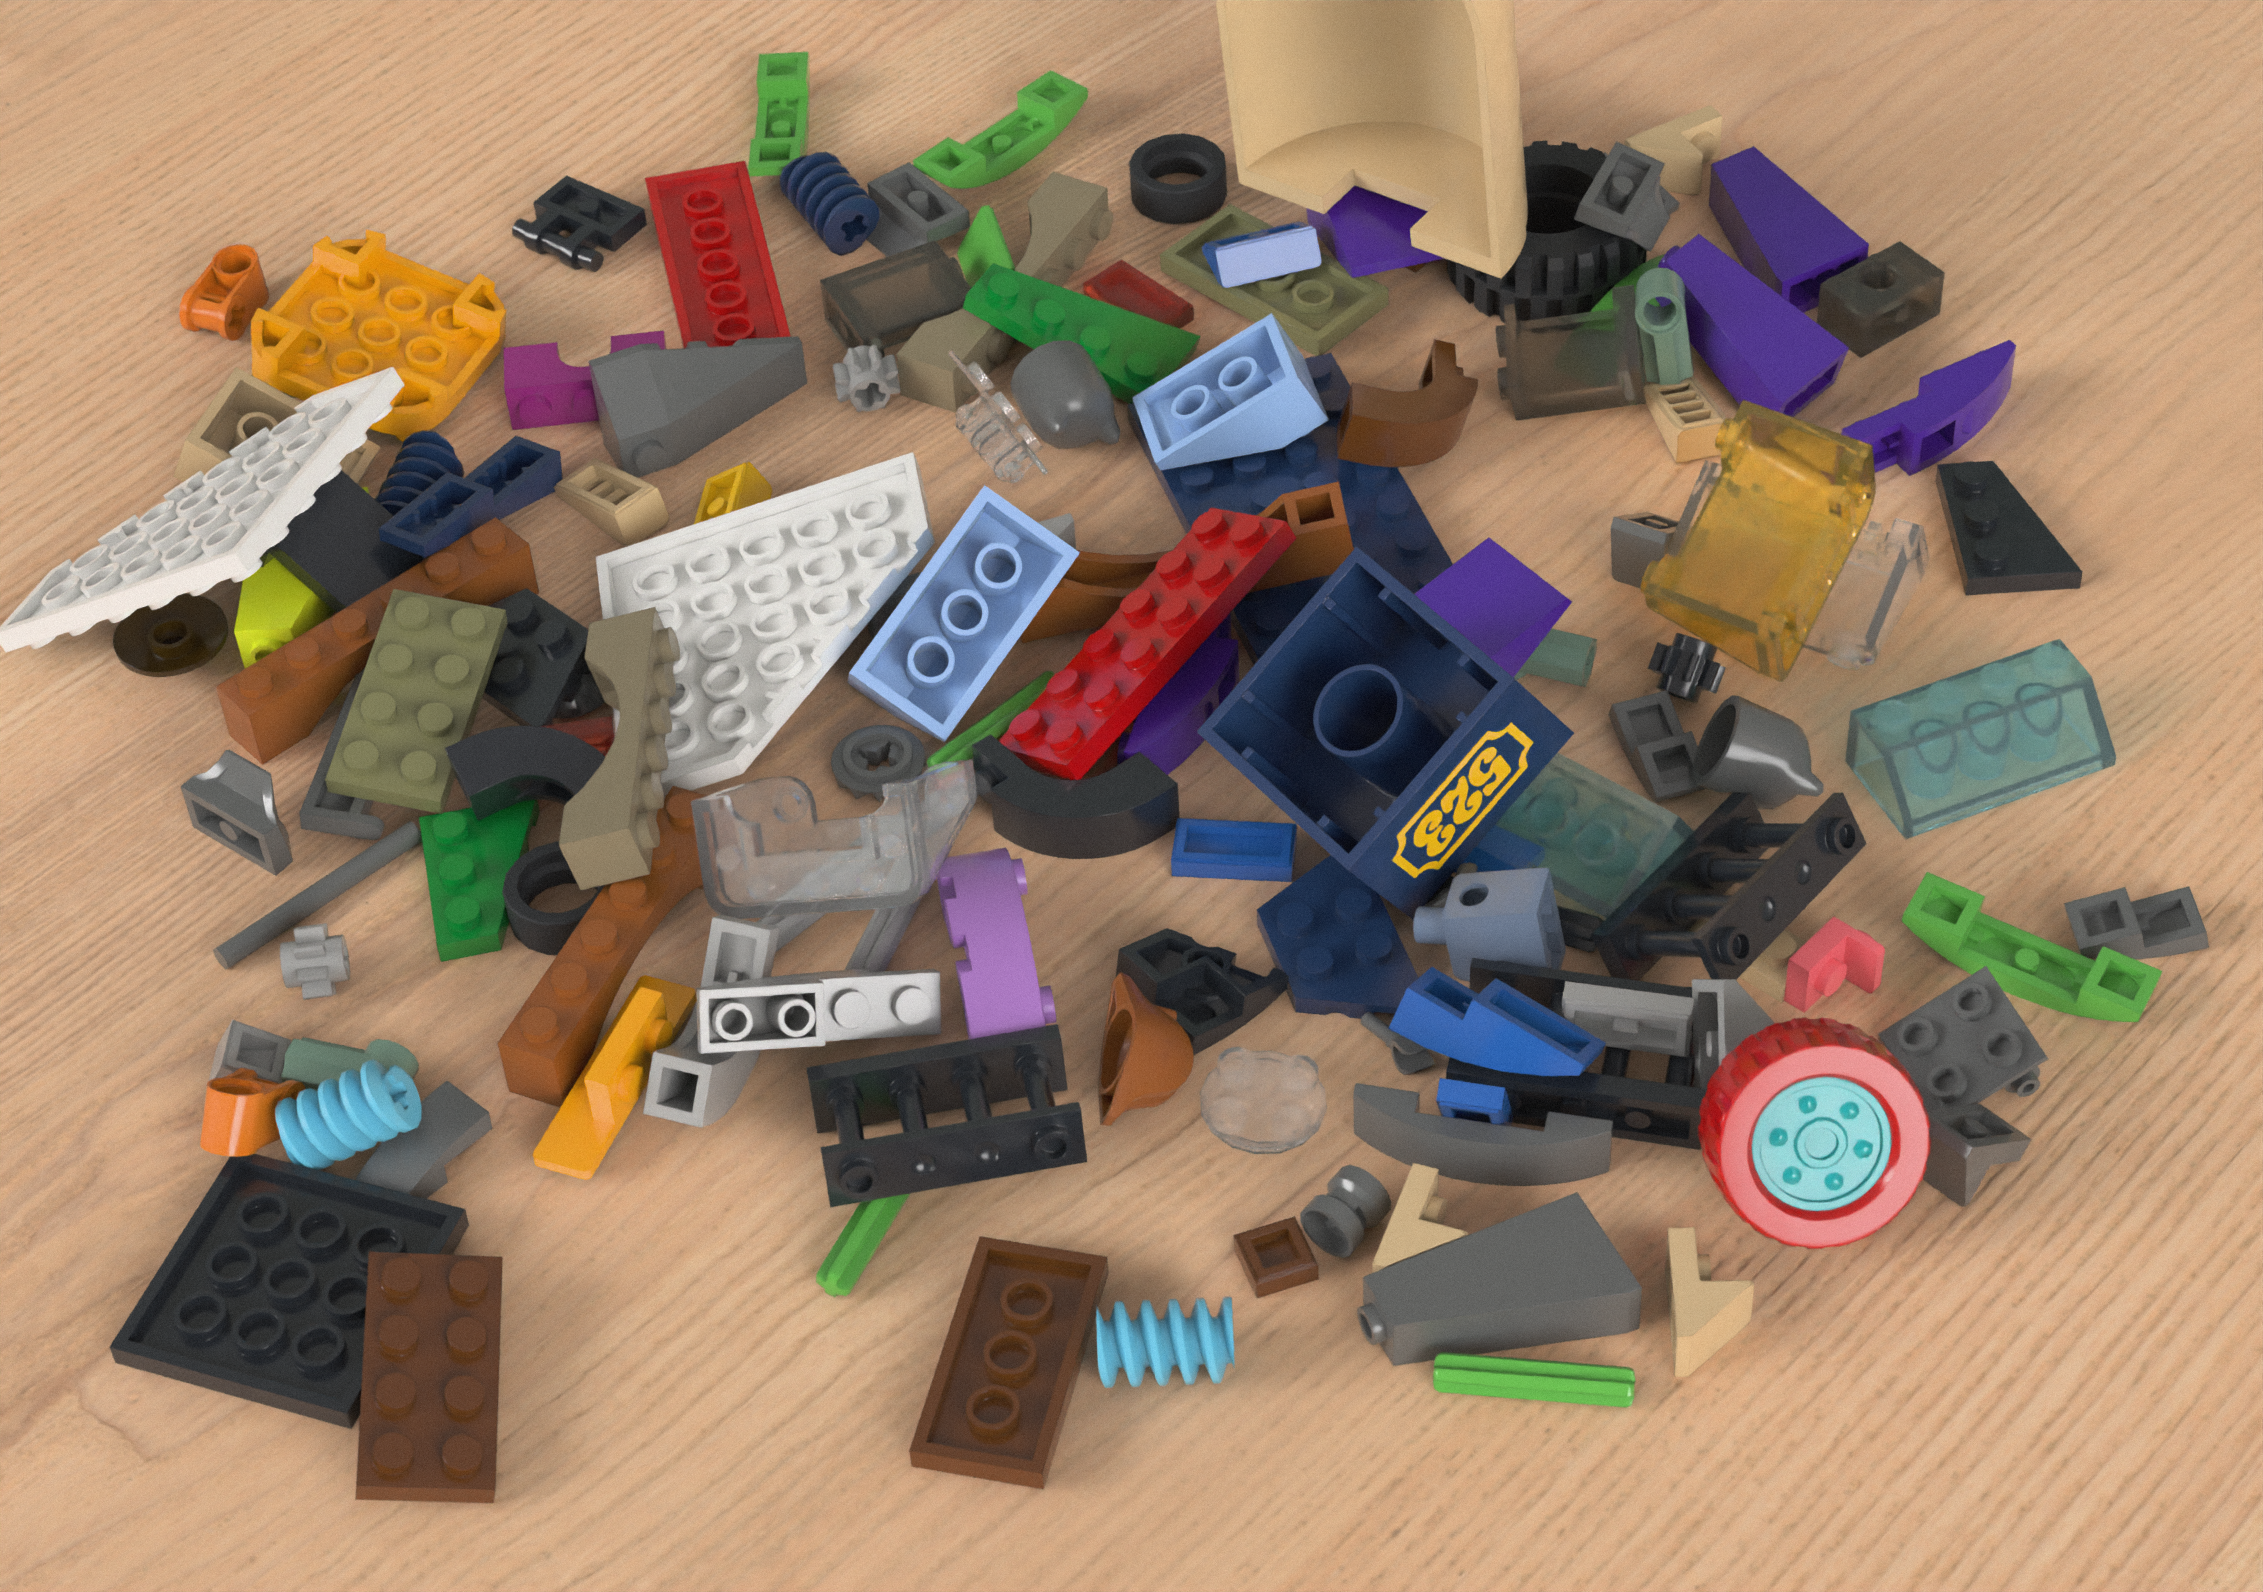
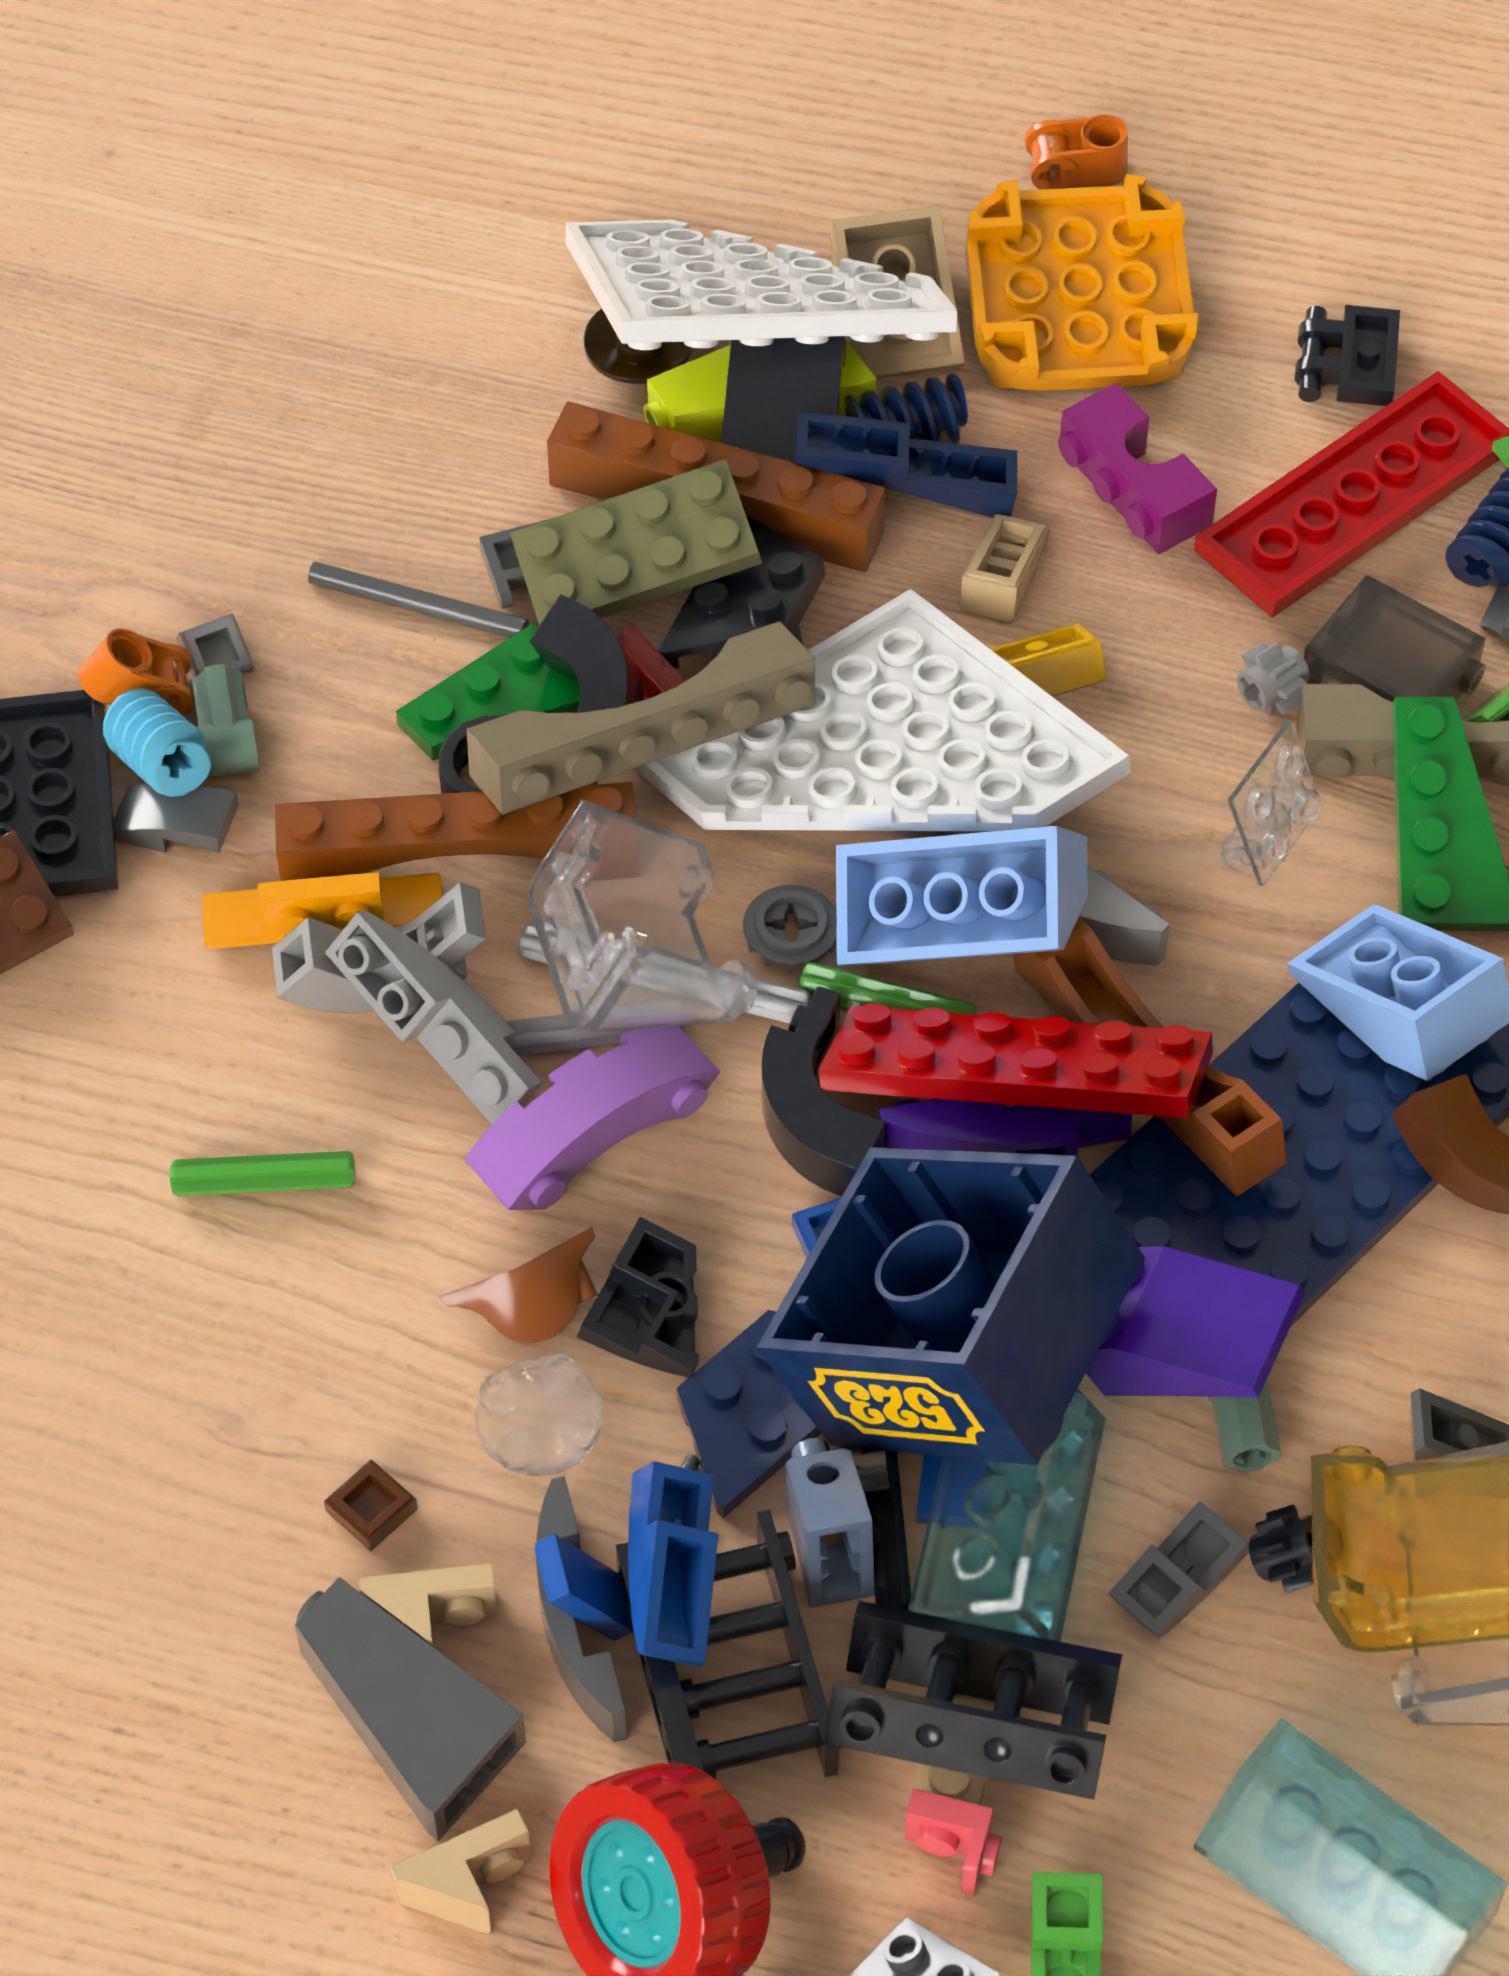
camera: 60 degrees right, 10 degrees up
(239, 811) = (459, 505): dark grey slope -> none
(315, 961) = (326, 635): light grey gear -> none
(675, 402) = (1133, 551): dark grey wedge -> none
(940, 1080) = (404, 1127): black fence -> none
(1010, 1363) = (149, 1348): reddish brown plate -> none
(1065, 396) = (1338, 849): dark grey piece -> none
(1165, 1342) = (211, 1452): medium azure piece -> none
(1341, 1216) = (433, 1535): dark grey wheel -> none
(1534, 1379) = (324, 1773): bright green axle -> none
(1631, 1017) = (747, 1672): light grey tile -> none
(1721, 1020) = (789, 1780): light grey slope -> none
(1756, 754) = (1183, 1660): dark grey piece -> none

